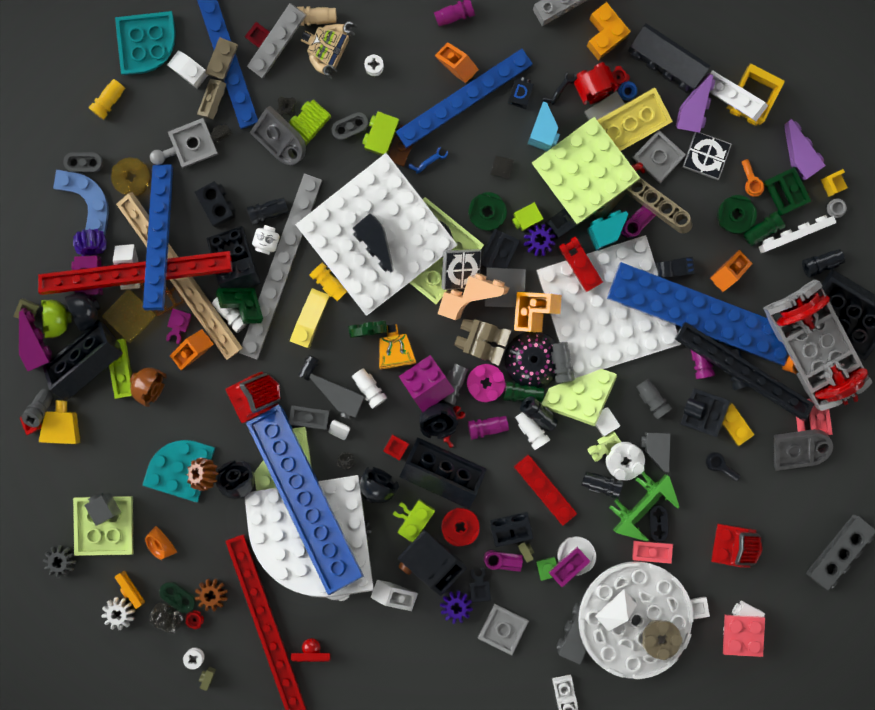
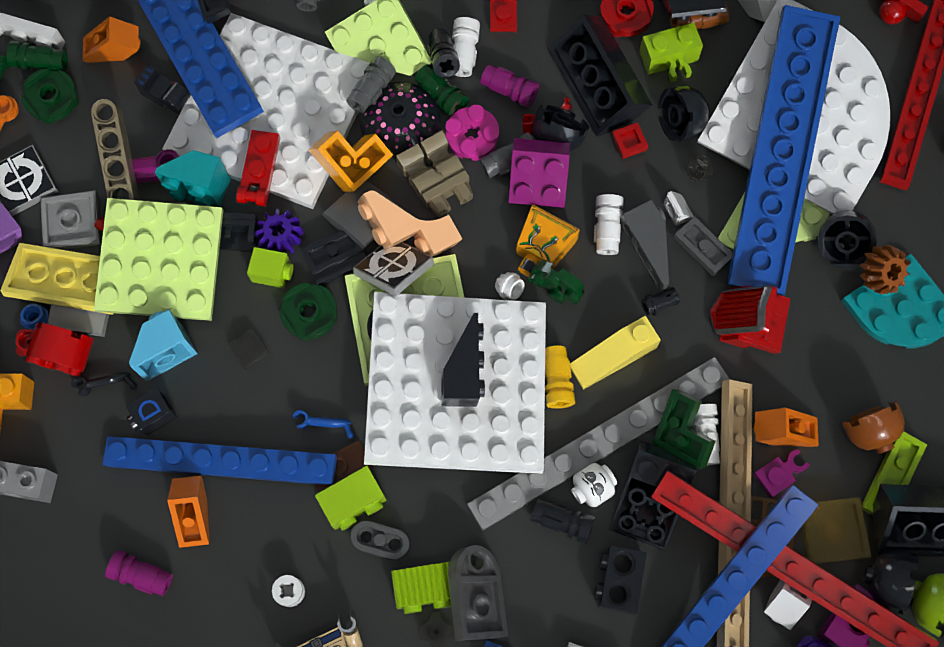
camera: 135 degrees left, 15 degrees down
(393, 310) = (509, 286): none -> white plate

